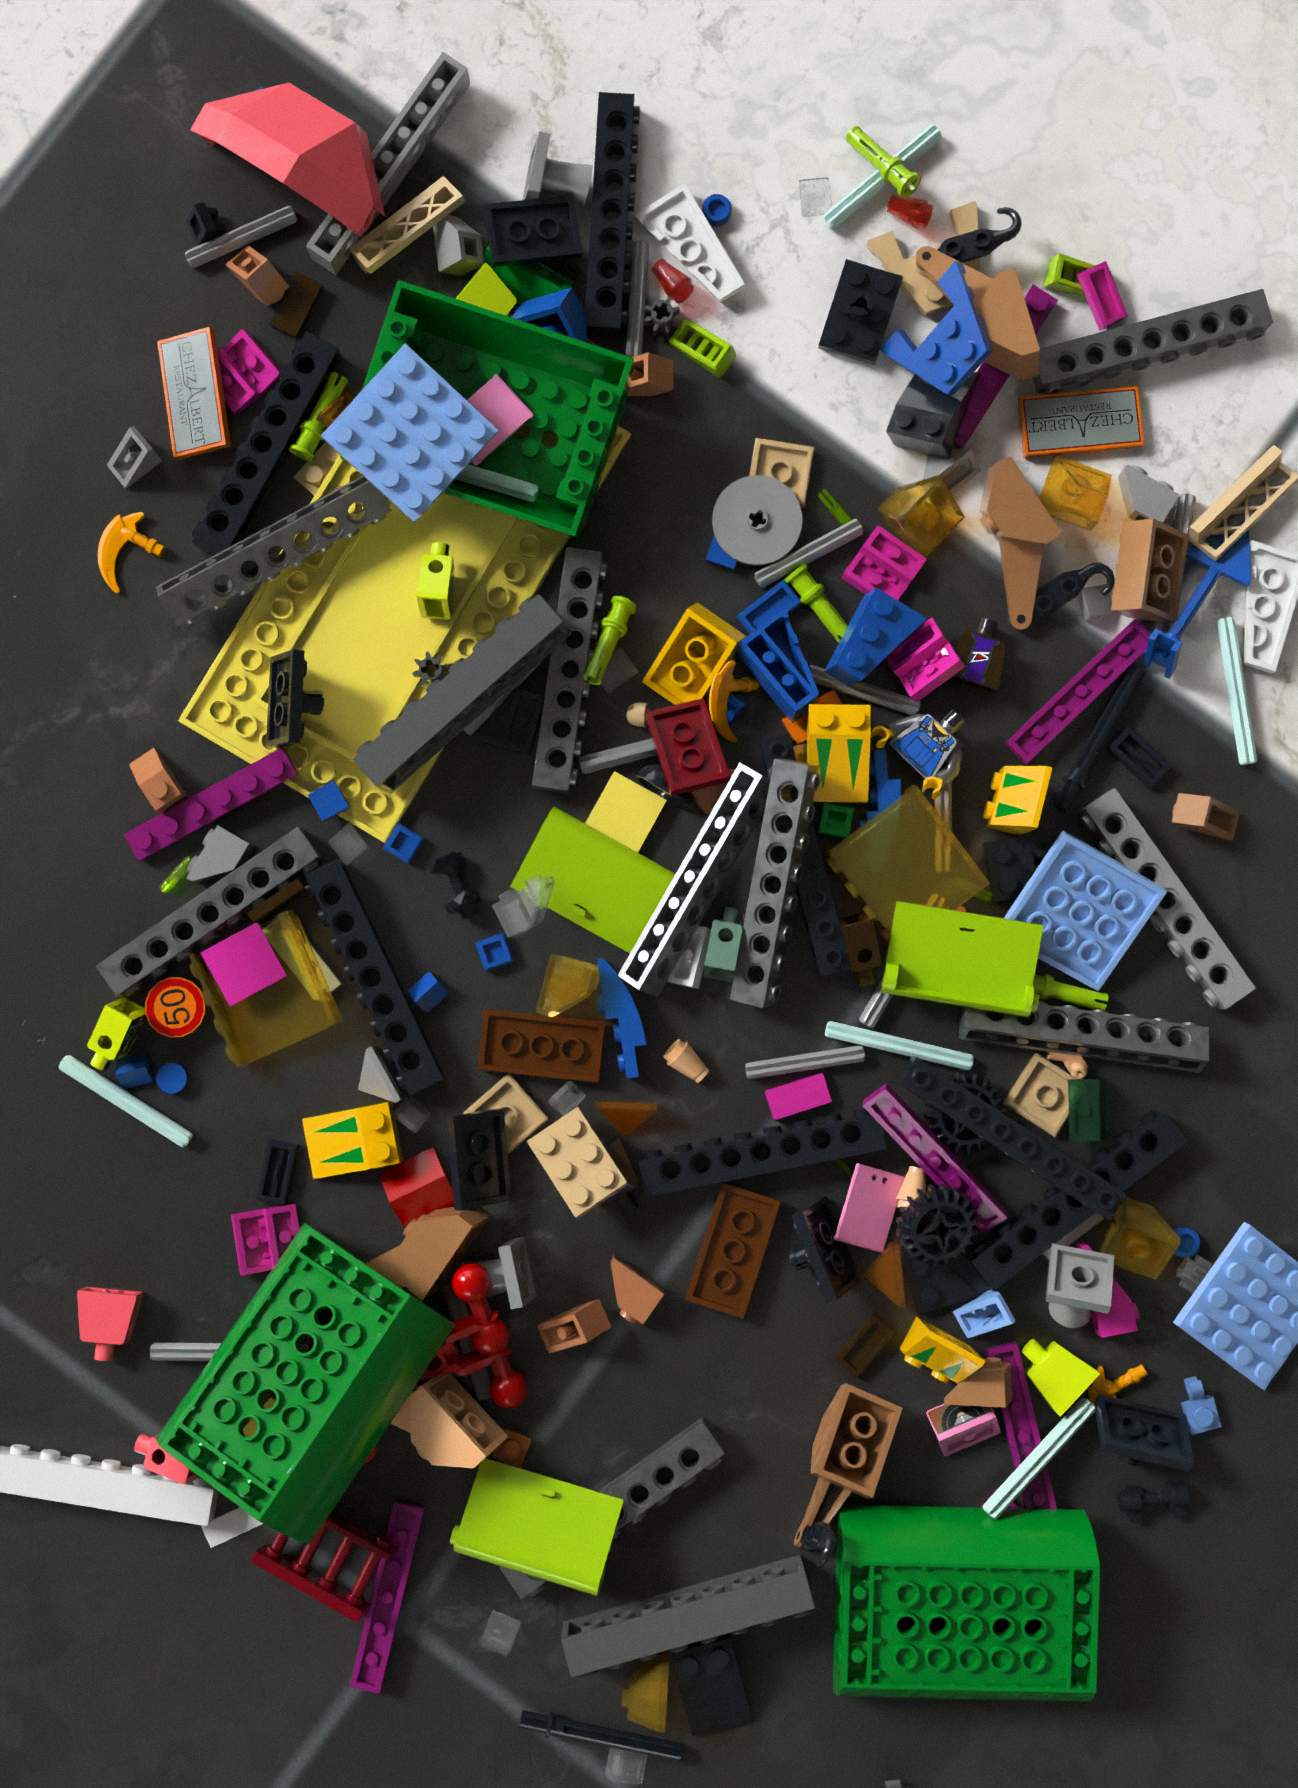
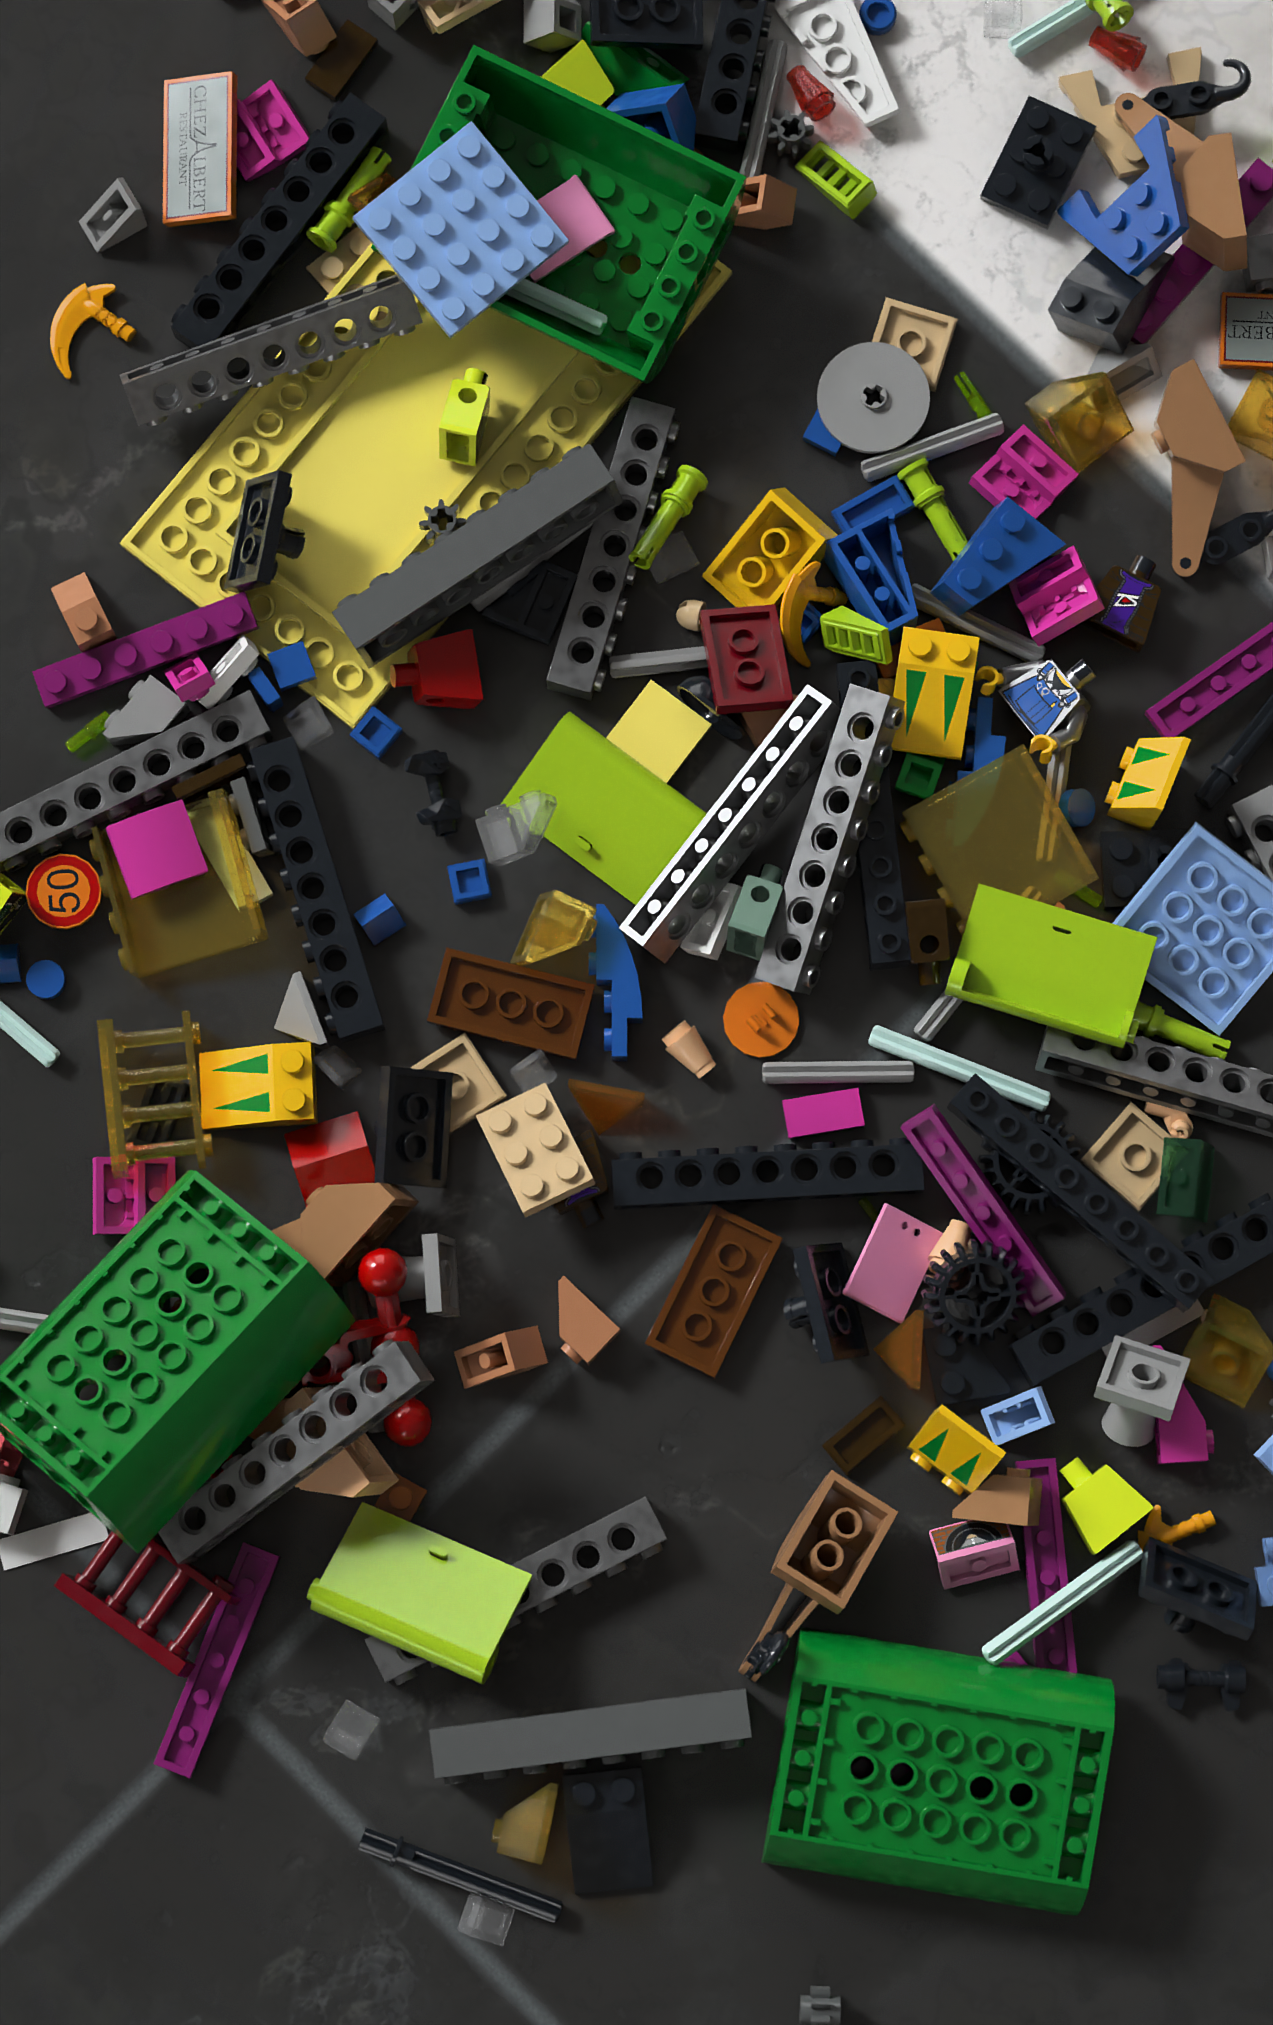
camera: 15 degrees right, 5 degrees down
(240, 1151) = (122, 1116): none -> clear yellow fence
(249, 824) = (190, 678): none -> dark pink plate
(273, 821) = (236, 662): none -> white plate
(310, 822) = (265, 689): none -> blue tile
(319, 935) = (255, 830): none -> dark grey plate
(448, 789) = (442, 672): none -> red torso
(500, 1372) = (405, 1379): none -> flat silver brick
(738, 1029) = (761, 1019): none -> orange piece
(769, 715) = (851, 634): none -> lime slope
(963, 825) = (1077, 807): none -> blue tile

